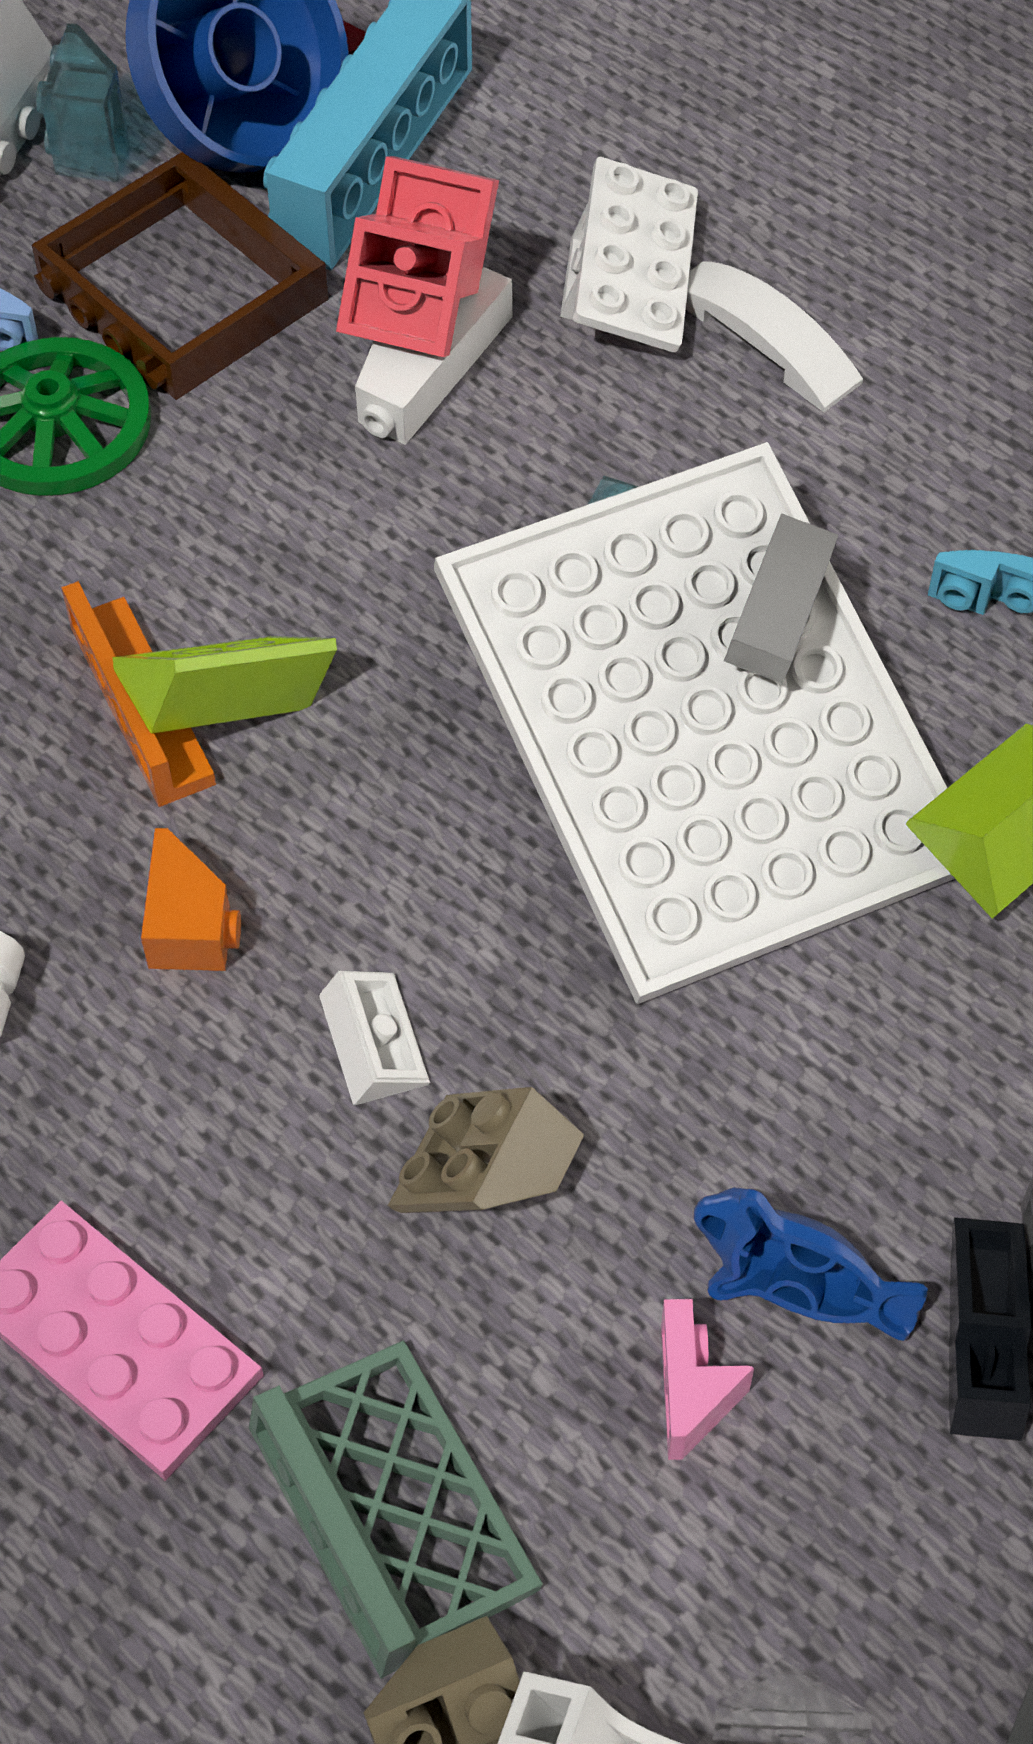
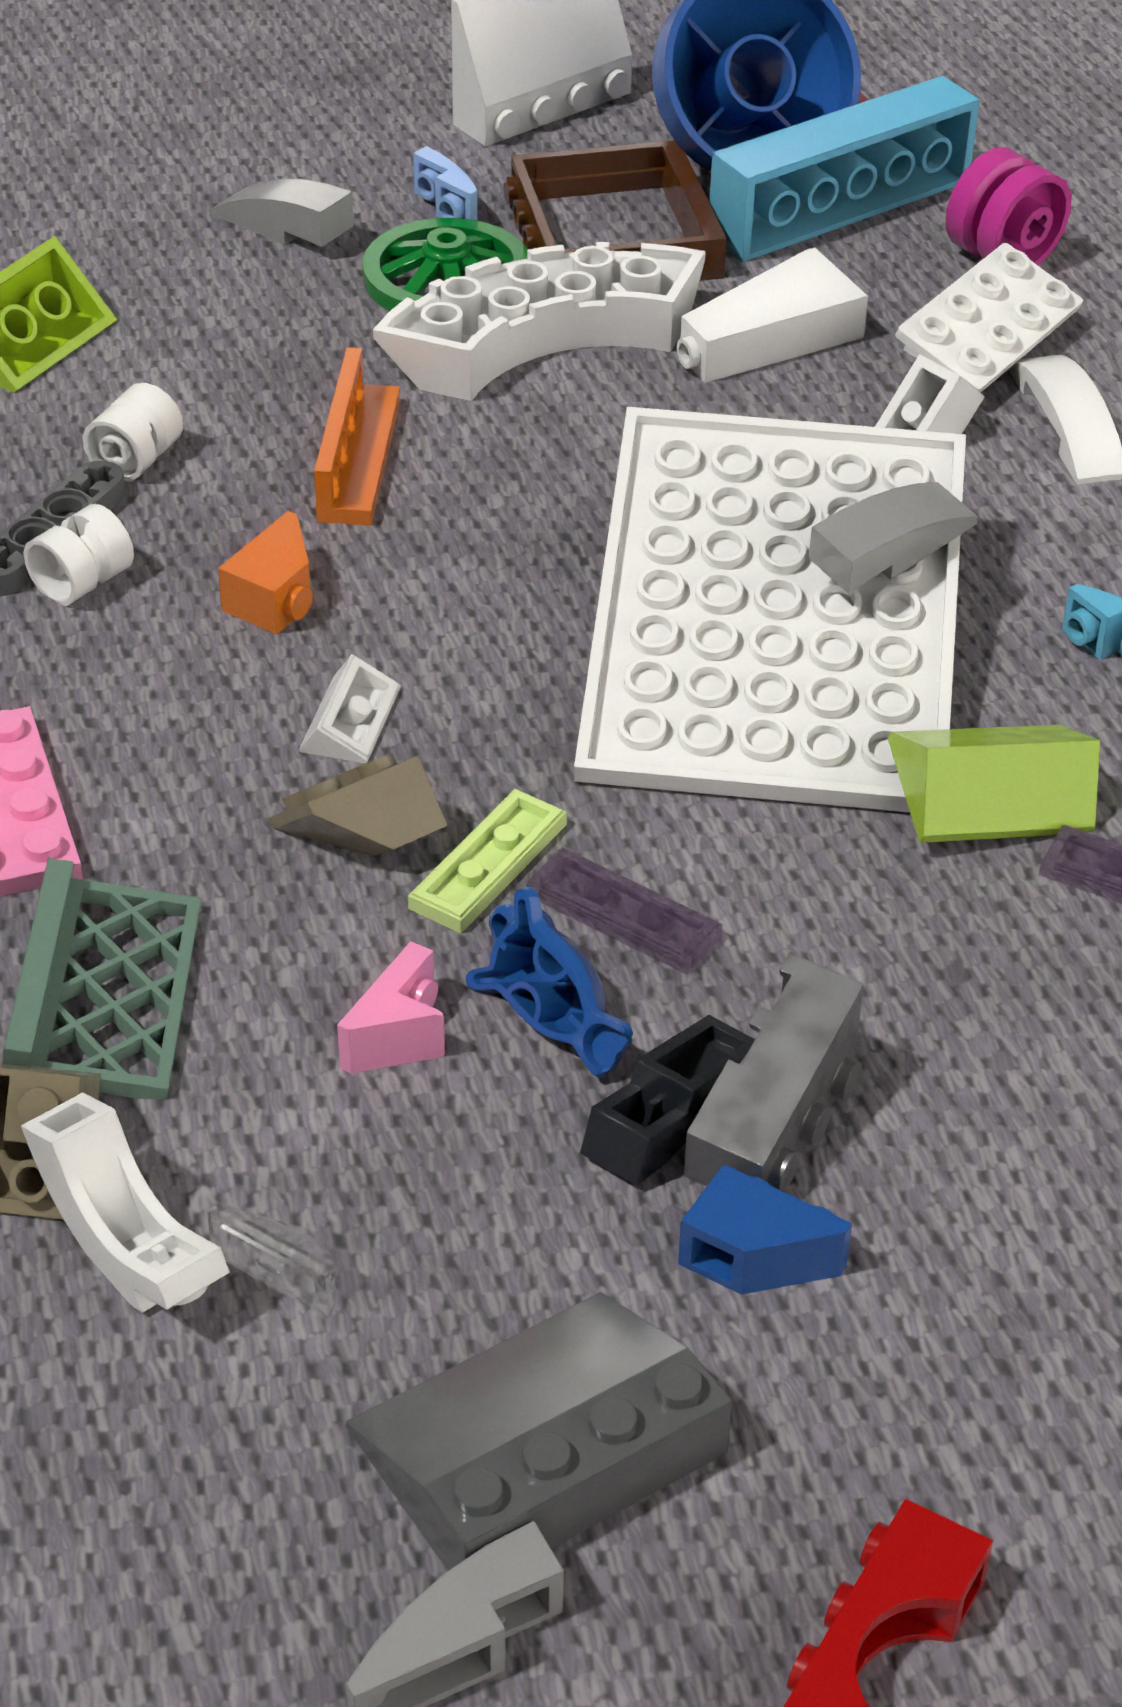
camera: 30 degrees right, 15 degrees down
(83, 110) = (618, 91): clear light blue slope -> none
(195, 427) = (537, 307): none -> white brick
(225, 680) = (422, 445): lime slope -> none
(417, 256) = (773, 243): coral bracket -> none
(567, 110) = (1008, 202): none -> dark pink wheel
(629, 1144) = (487, 861): none -> yellowish green tile
(650, 404) = (931, 400): none -> white slope
(789, 1133) = (625, 910): none -> clear purple tile

